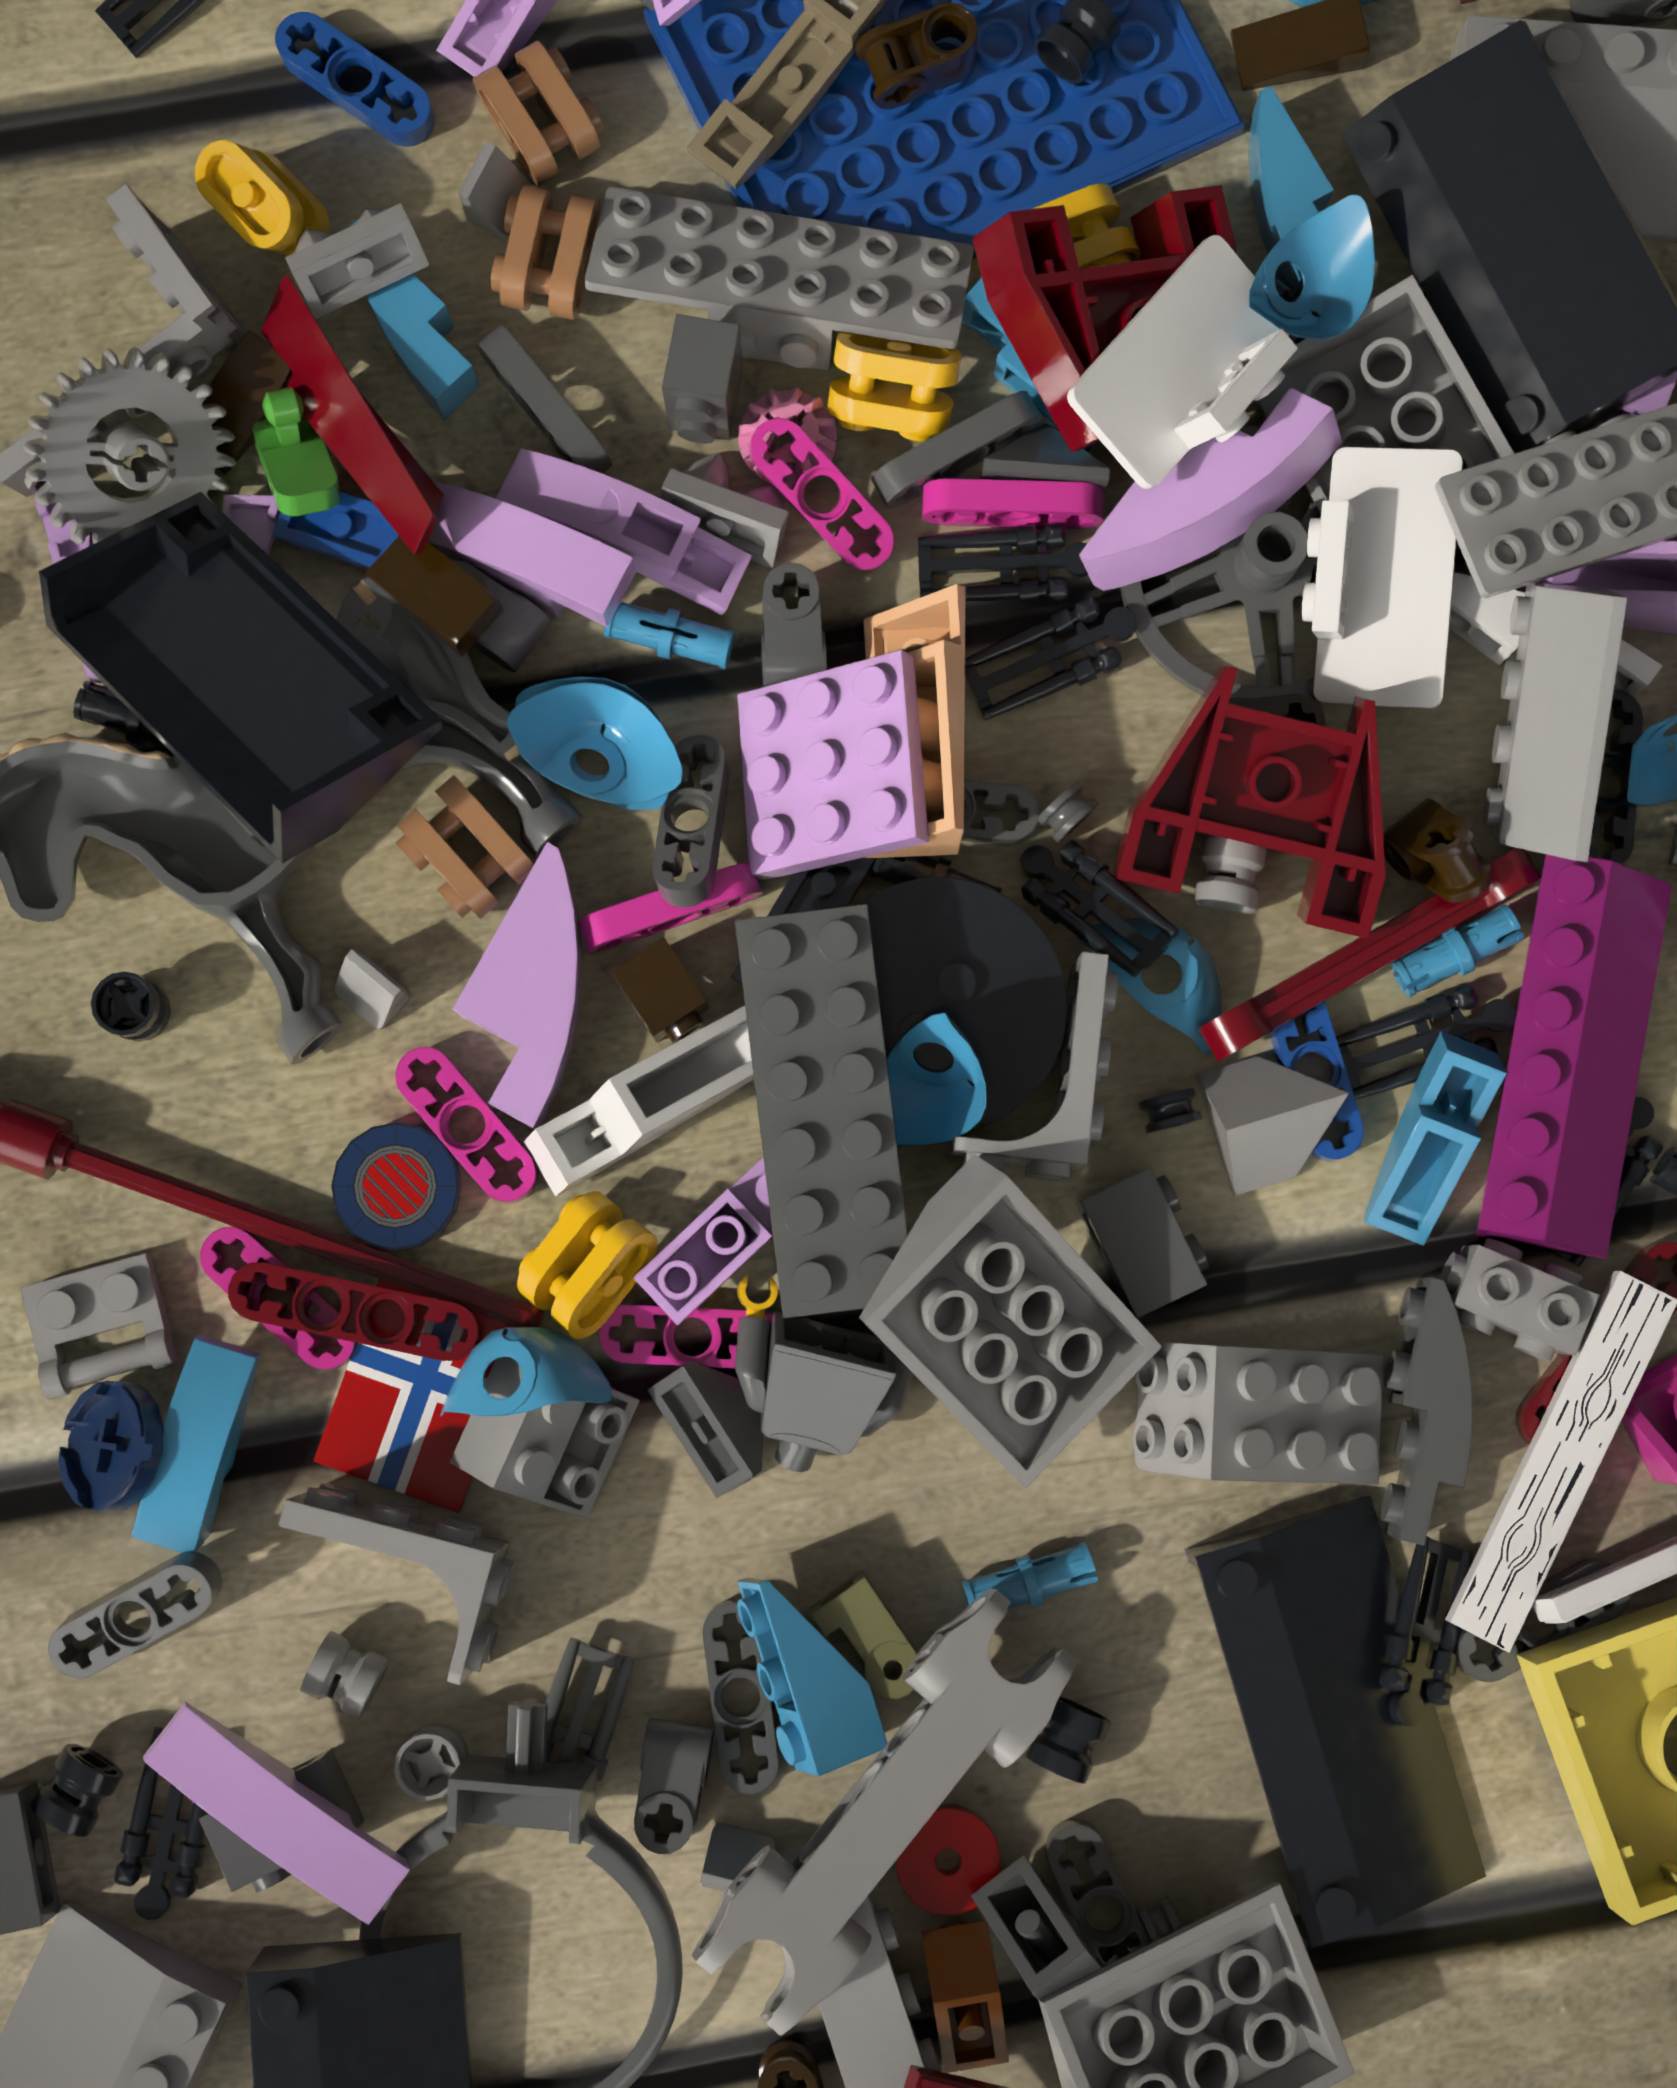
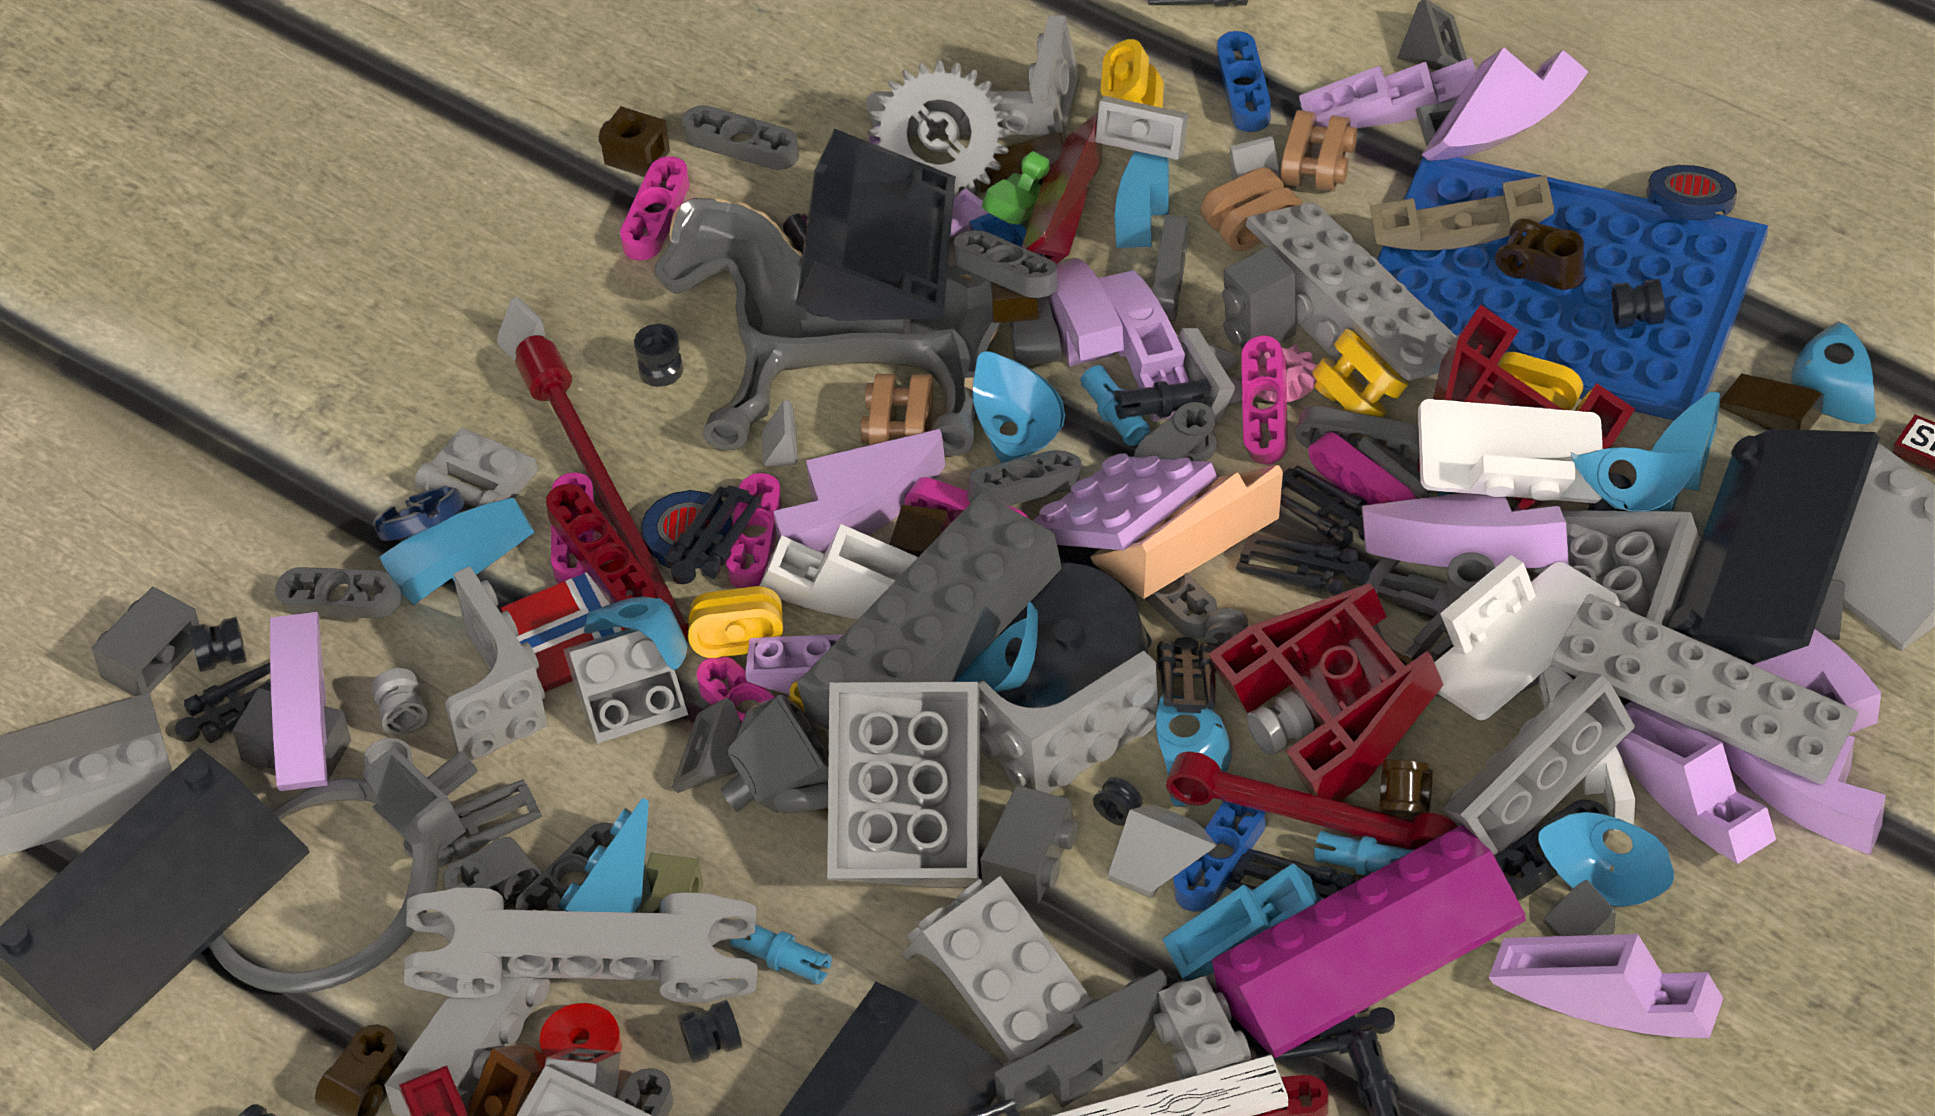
camera: 55 degrees right, 35 degrees down
(440, 596) = (1006, 264): none -> dark grey beam
(470, 1256) = (685, 545): none -> black piece
(730, 594) = (1160, 399): none -> black pin

